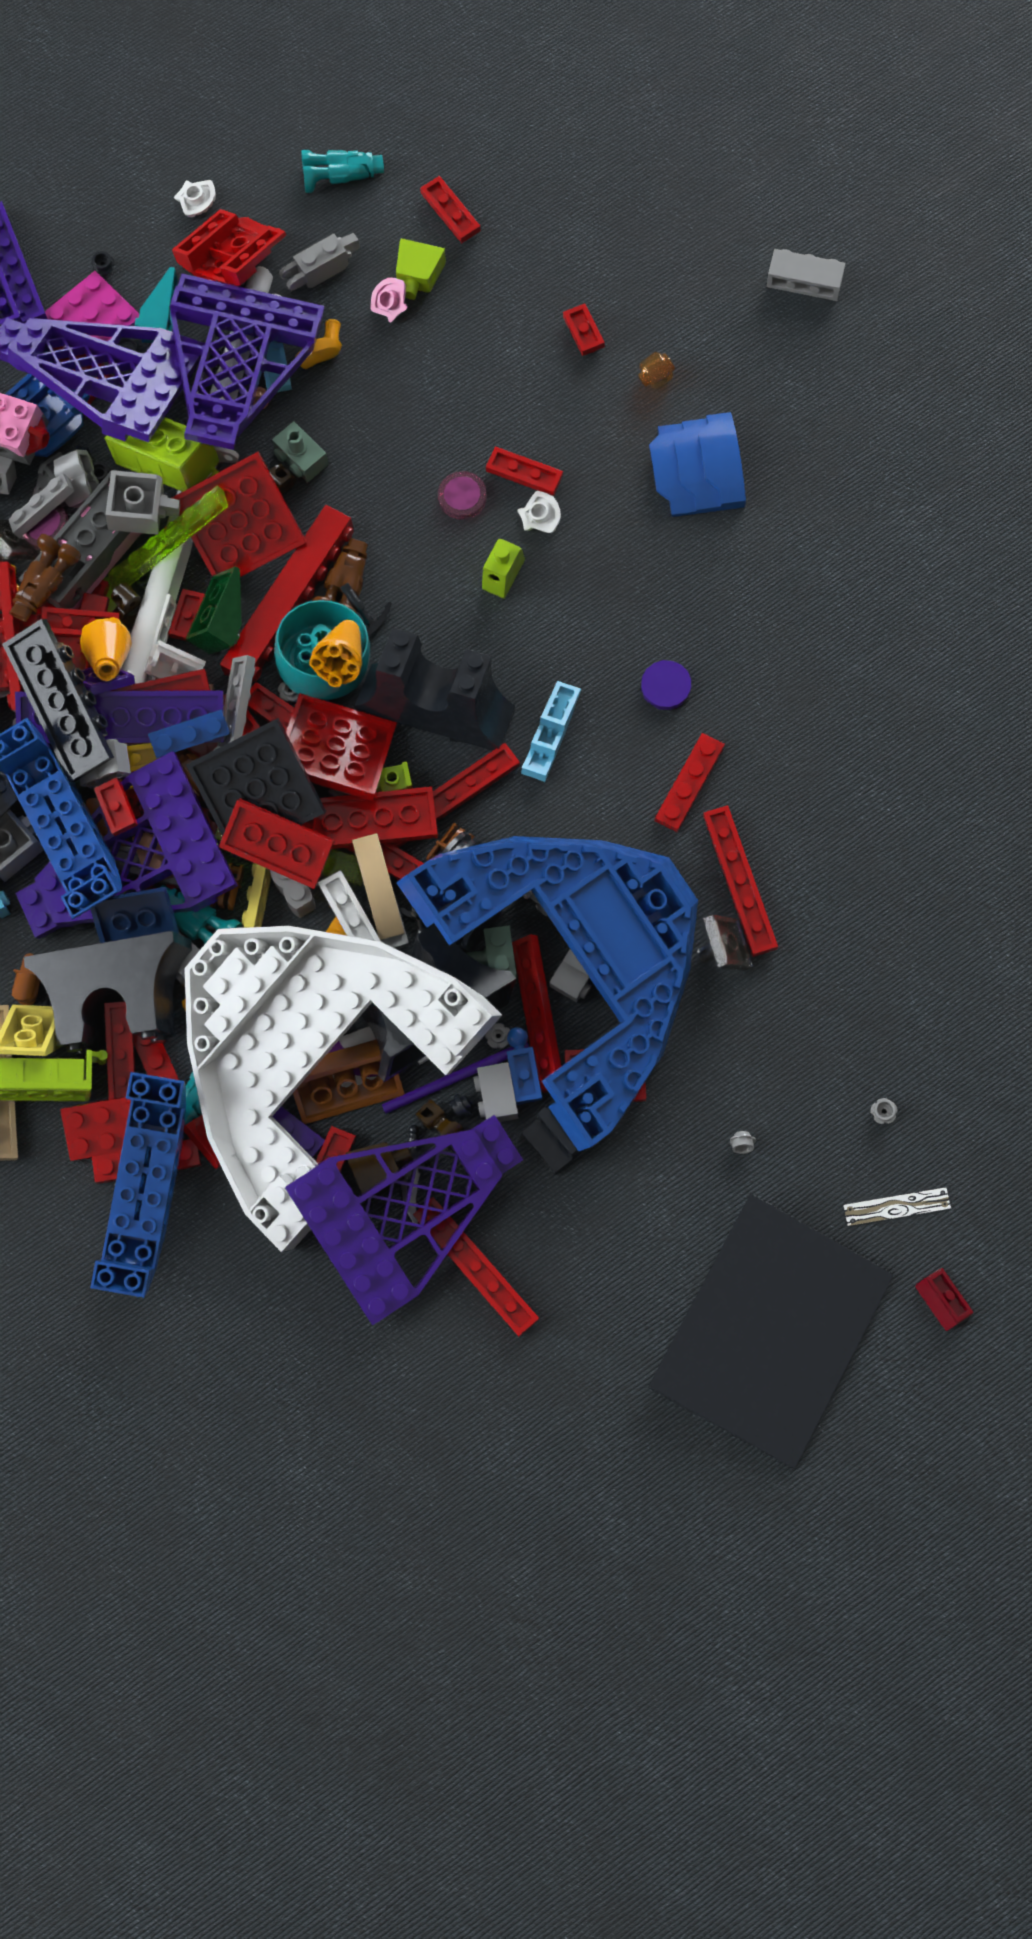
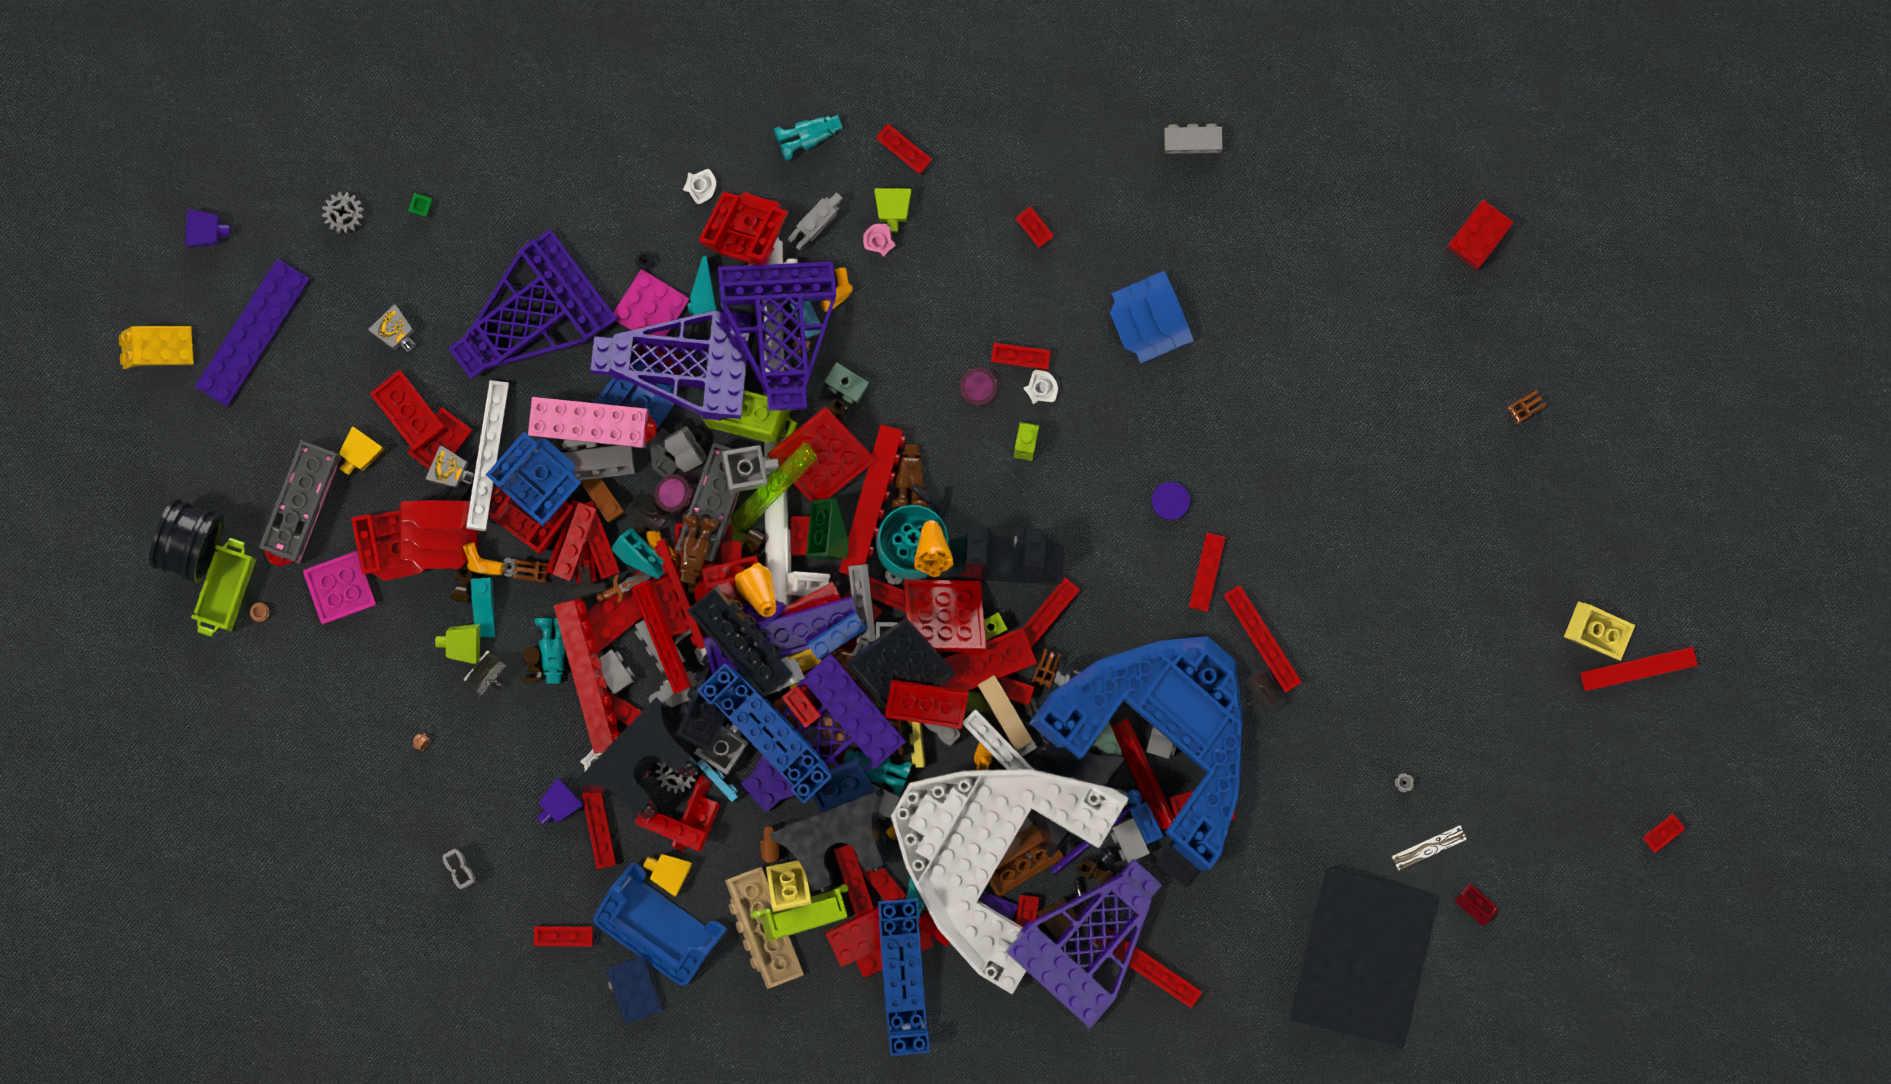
camera: 15 degrees left, 10 degrees up
(41, 505) = (666, 479): light grey plate -> none
(551, 731) = (1095, 558): medium azure slope -> none
(656, 370) = (1099, 249): clear orange head -> none
(742, 1142) = (1311, 831): light grey plate -> none

